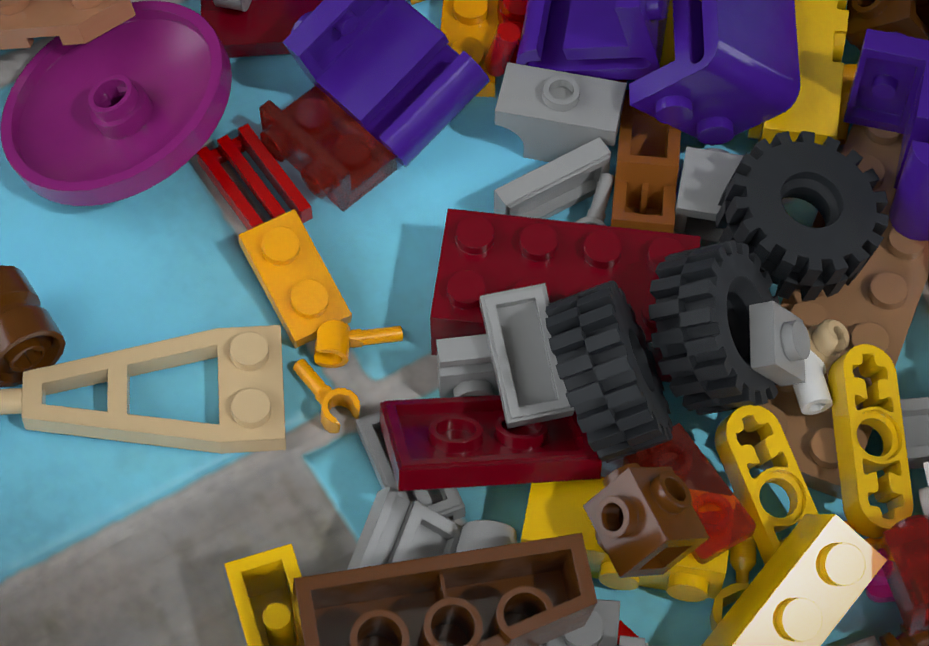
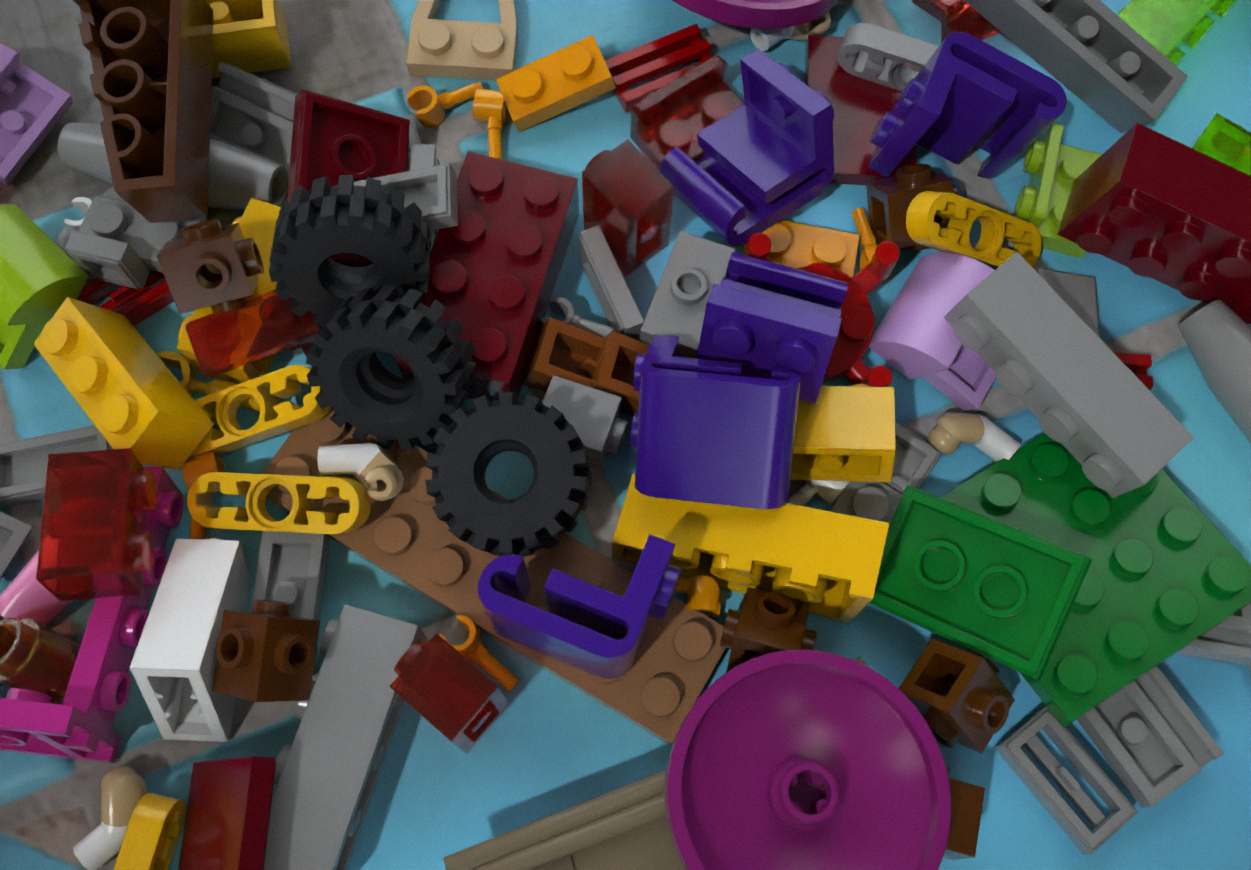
camera: 95 degrees right, 10 degrees up
(469, 158) = (628, 203): none -> clear red brick
(778, 343) = (367, 418): light grey plate -> none

